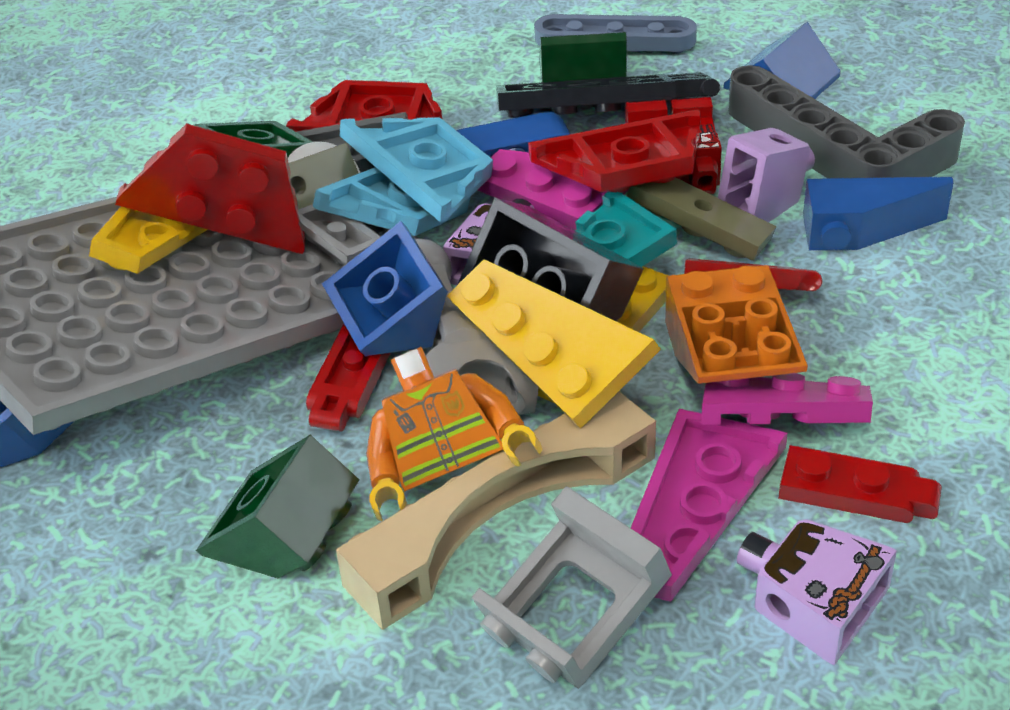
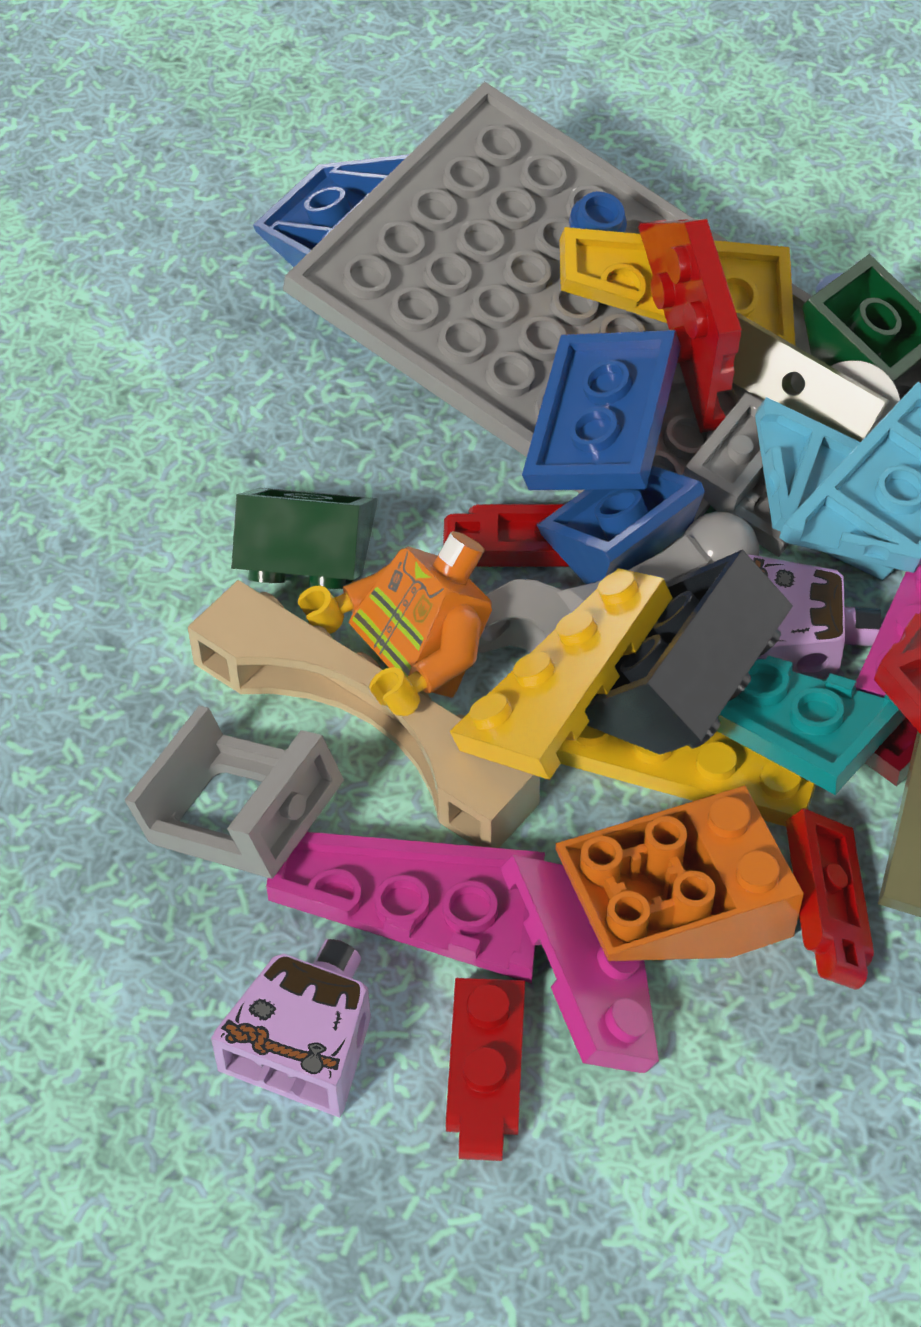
camera: 75 degrees right, 10 degrees up
(76, 232) = (598, 212): none -> blue plate
(287, 270) = (602, 411): none -> blue plate

